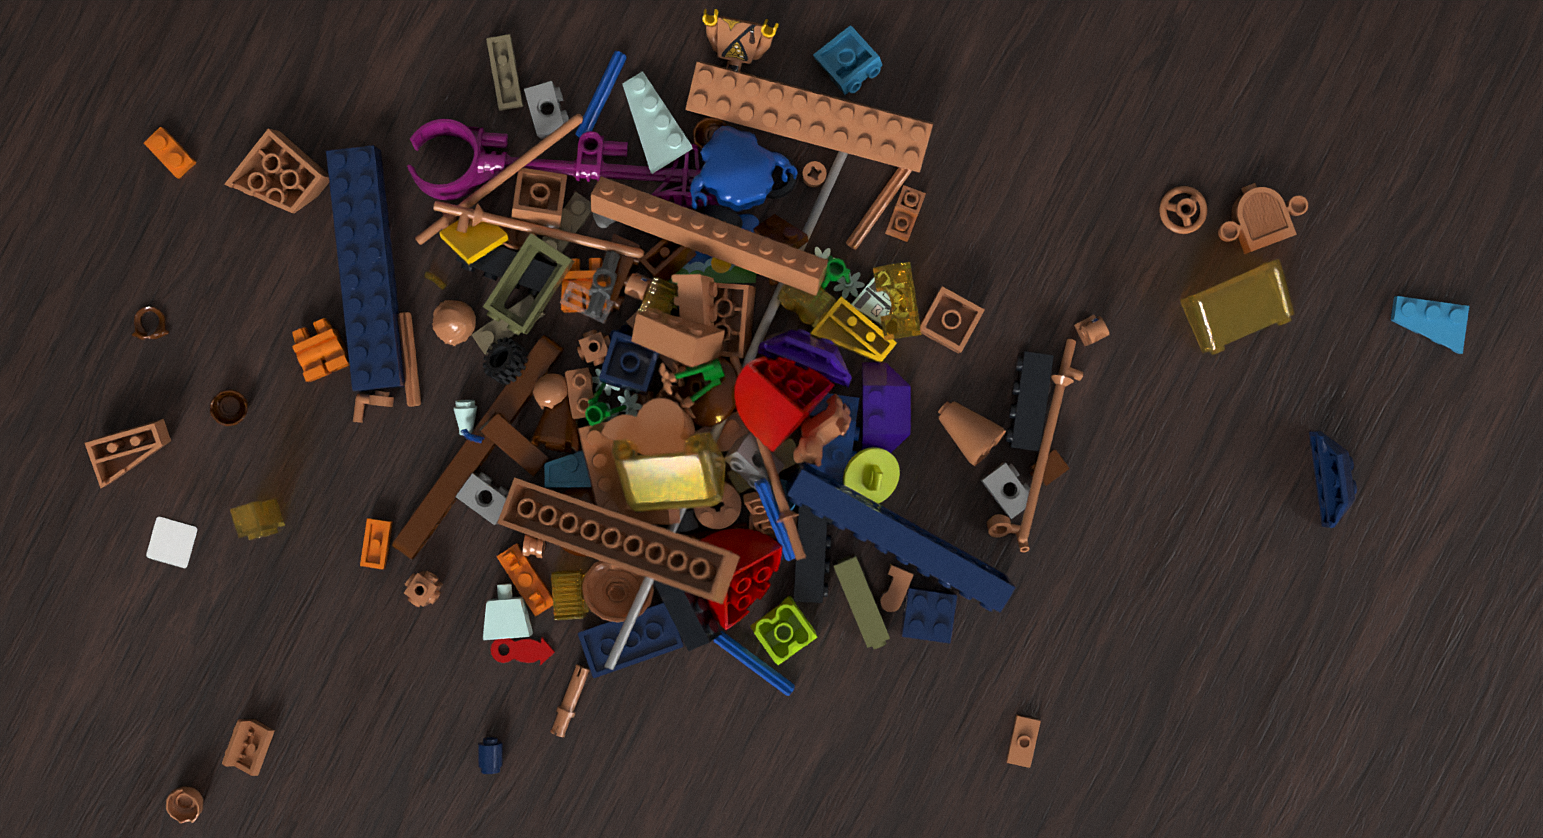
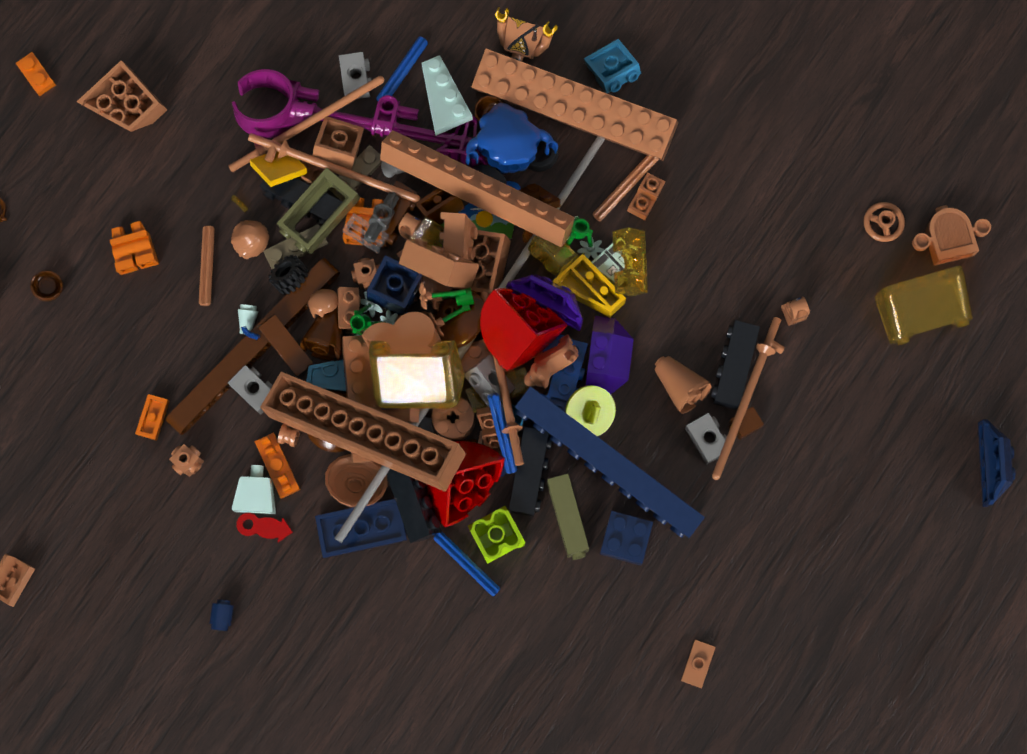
camera: 10 degrees right, 10 degrees down
(257, 519) = (54, 379): clear yellow arch -> none
(366, 267) = (183, 186): dark blue brick -> none
(380, 399) = (176, 294): nougat plate -> none
(505, 72) = (324, 42): dark tan plate -> none
(568, 594) = (312, 481): clear yellow brick -> none
(571, 697) = (300, 574): nougat pin -> none
(814, 179) = (572, 159): nougat wheel -> none
(893, 597) = (596, 519): nougat leg -> none
(950, 320) = (674, 286): nougat brick -> none
(1001, 526) = (698, 469): nougat plate -> none

